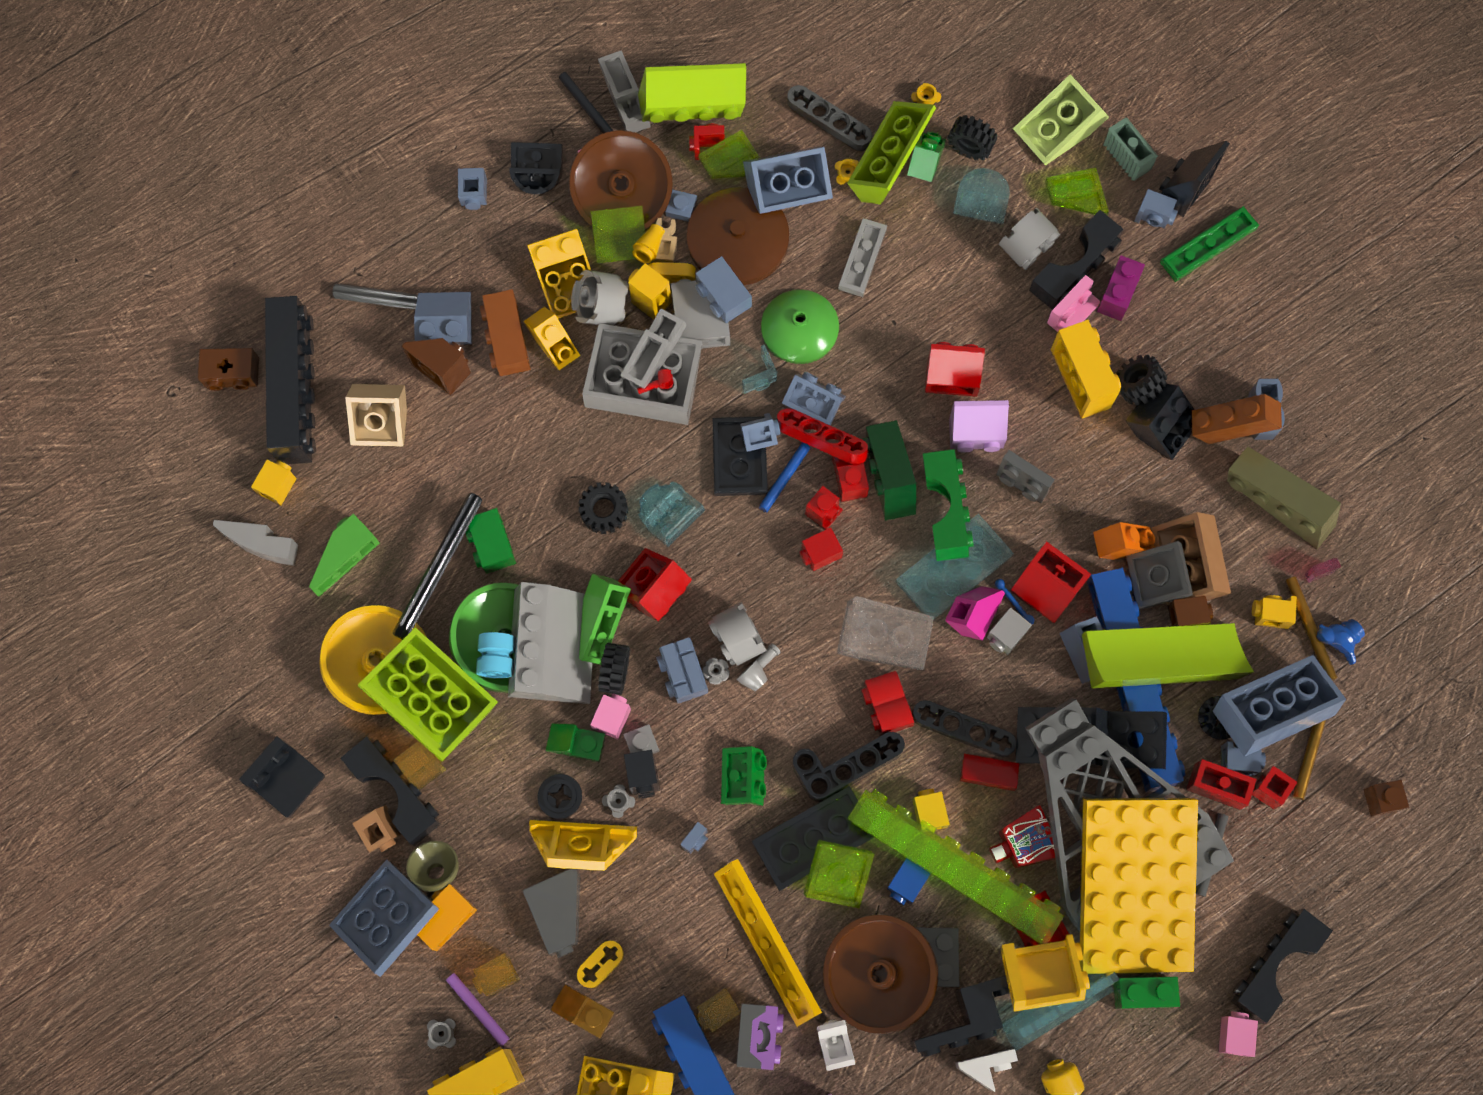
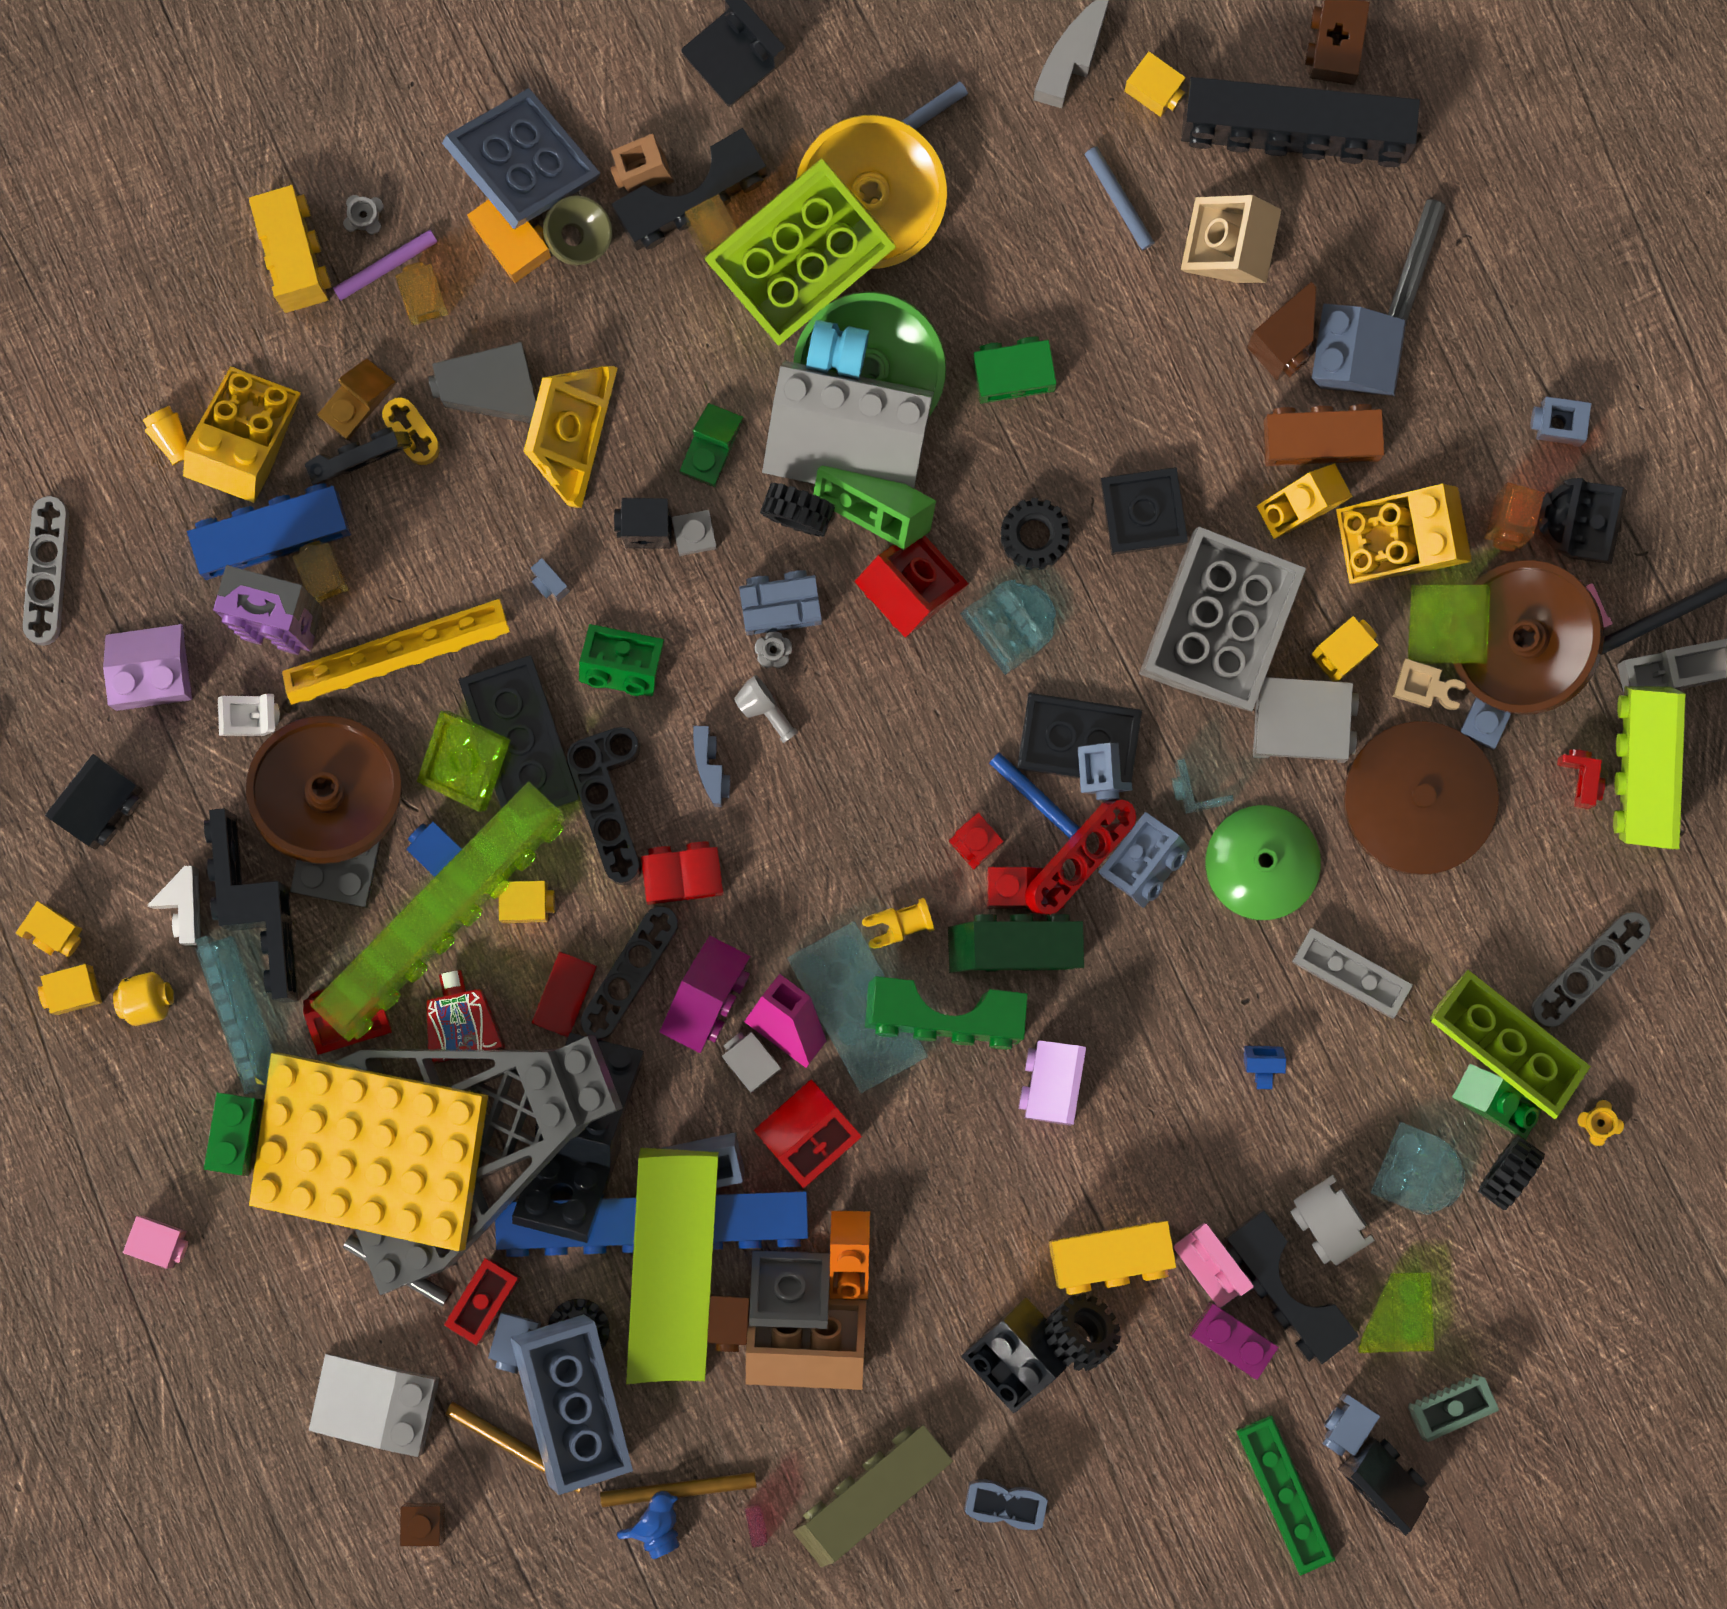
camera: 100 degrees right, 10 degrees up
(306, 628) = (936, 106): none -> sand blue bar
(345, 548) = (1039, 169): bright green slope -> none
(358, 494) = (1119, 198): none -> sand blue bar
(437, 566) = (985, 291): black axle -> none
(542, 202) = (1514, 516): none -> clear orange brick
(553, 785) = (634, 396): black gear -> none
(575, 439) = (1144, 511): none -> black plate
(599, 298) = (1344, 575): light grey brick -> none
(611, 716) = (735, 496): bright pink brick -> none
(618, 793) = (619, 478): light grey plate -> none
(628, 1004) = (353, 456): none -> black hinge
(648, 244) = (1420, 661): yellow cone -> none
(653, 348) = (1245, 636): light grey slope -> none
(664, 381) = (1196, 645): red hand -> none
(674, 271) = (1375, 688): yellow beam -> none
(723, 290) = (1321, 753): sand blue brick -> none
(727, 157) = (1546, 812): clear neon green wing -> none
(738, 634) = (813, 685): light grey brick -> none
(788, 179) = (1492, 885): sand blue slope -> none
(816, 694) = (712, 776): none -> sand blue slope
(821, 549) = (916, 825): red brick -> none
(842, 167) = (1503, 971): yellow plate -> none
(885, 634) = (777, 889): clear slope -> none
(891, 549) = (900, 923): none -> yellow piece
(934, 300) = (1264, 1062): none -> blue tile
(954, 369) = (1146, 1066): slope -> none
(970, 668) = (706, 995): none -> magenta brick
(1000, 584) = (766, 1096): blue hinge -> none
(1025, 477) = (975, 1117): dark grey plate -> none
(1044, 974) = (272, 990): yellow panel -> none
(1060, 121) = (1521, 1317): yellowish green slope -> none
(1237, 419) = (991, 1450): dark orange brick -> none
(1259, 993) = (265, 1359): black arch -> none
(1273, 787) = (465, 1371): red brick -> none
(1274, 611) = (710, 1441): yellow brick -> none
(1312, 850) = (374, 1405): none -> slope

